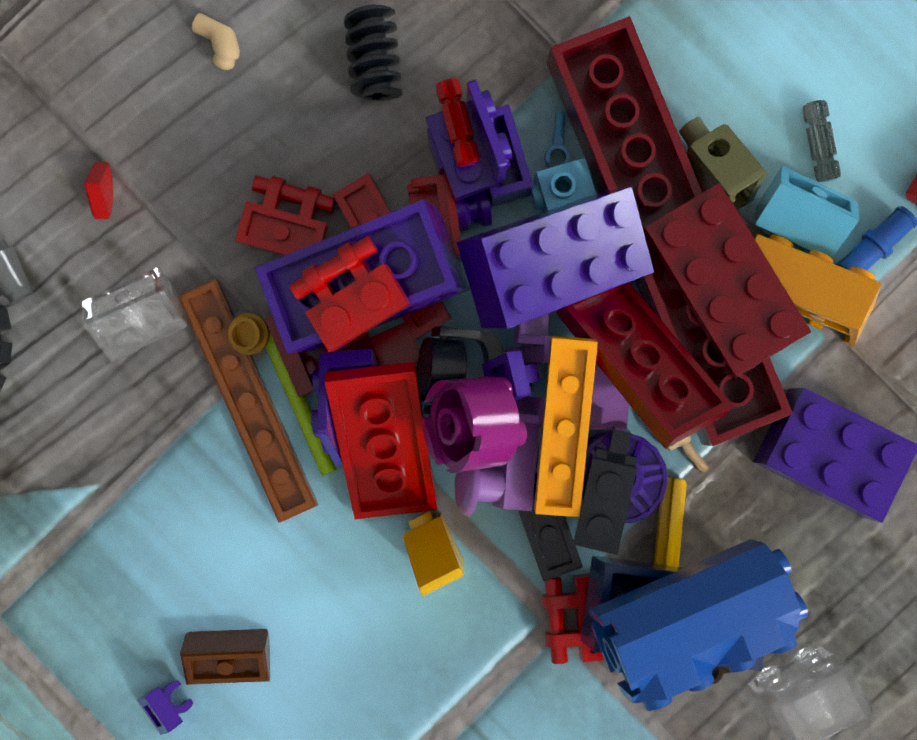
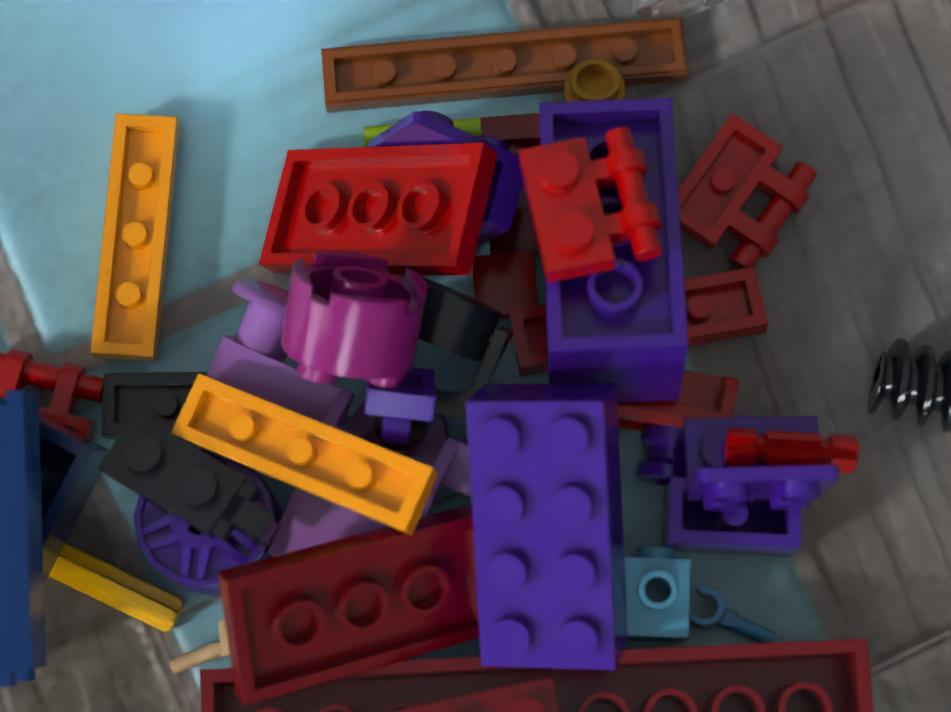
camera: 110 degrees right, 10 degrees down
(432, 552) = (200, 228): yellow slope -> none
(479, 588) = (135, 238): none -> light orange plate

